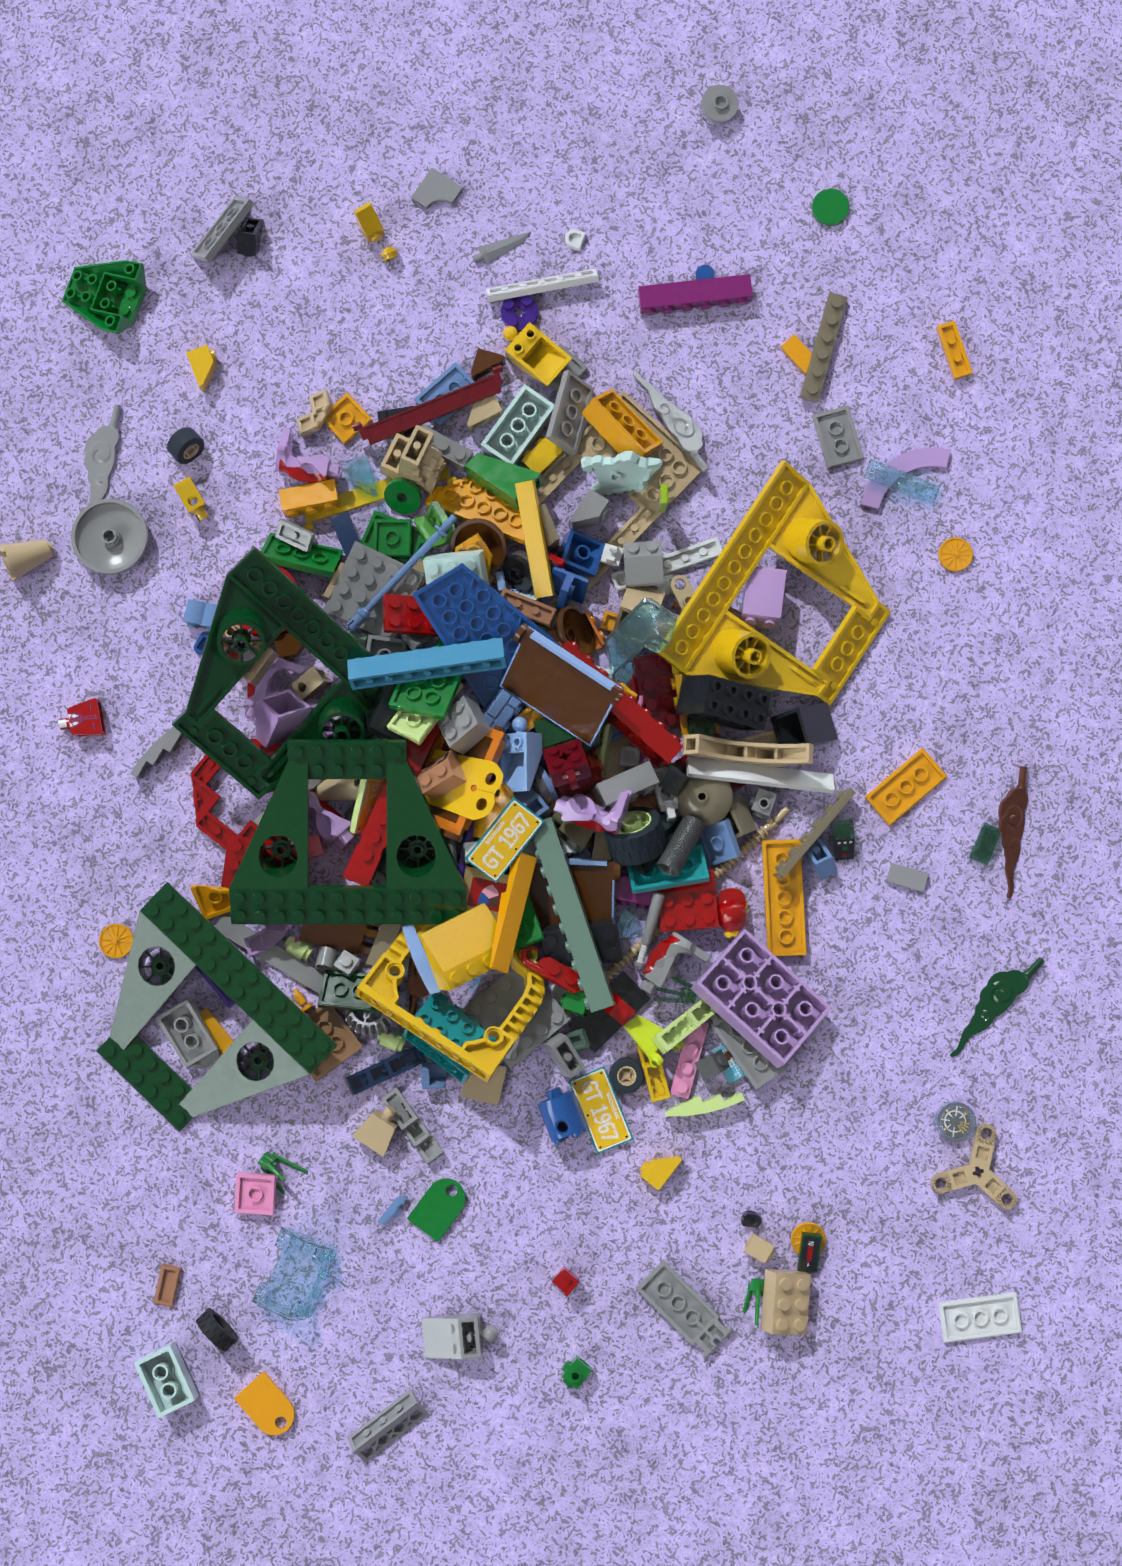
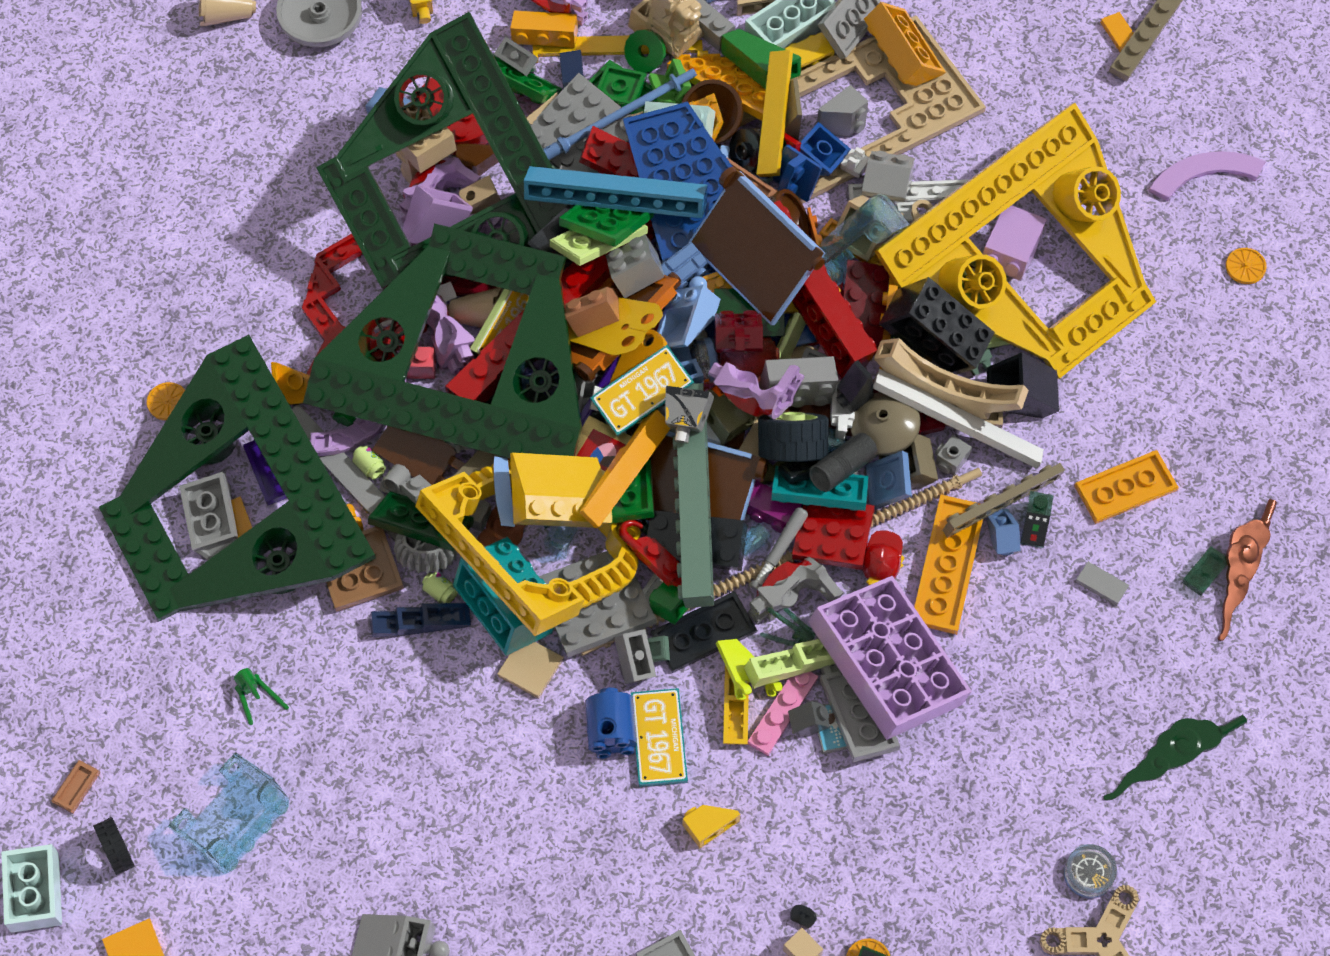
camera: 15 degrees right, 20 degrees down
(84, 719) = (223, 173): red torso -> none
(167, 742) = (301, 218): light grey slope -> none
(255, 1193) = (218, 710): bright pink plate -> none
(360, 474) = (606, 21): clear light blue slope -> none
(378, 1130) = (388, 680): tan torso -> none
(393, 1210) = (373, 778): medium blue piece -> none
(413, 1126) = (430, 691): light grey slope -> none
(432, 1076) = (473, 639): medium blue panel -> none
(437, 1208) = (426, 792): green tile -> none
(546, 851) = (686, 410): none -> light grey torso
(566, 1280) = (553, 919): red panel -> none
(621, 473) = (891, 79): light aqua shield -> none
(621, 1011) = (714, 623): red slope -> none
(626, 1075) = (699, 696): black wheel -> none
(663, 498) = (929, 117): lime tile -> none
(677, 422) = (970, 65): light grey piece -> none
(696, 1106) = (775, 763): yellowish green slope -> none
(837, 437) = (1141, 120): light grey tile -> none
(901, 481) = (1202, 176): clear light blue tile -> none
(954, 350) = (1293, 69): light orange plate -> none

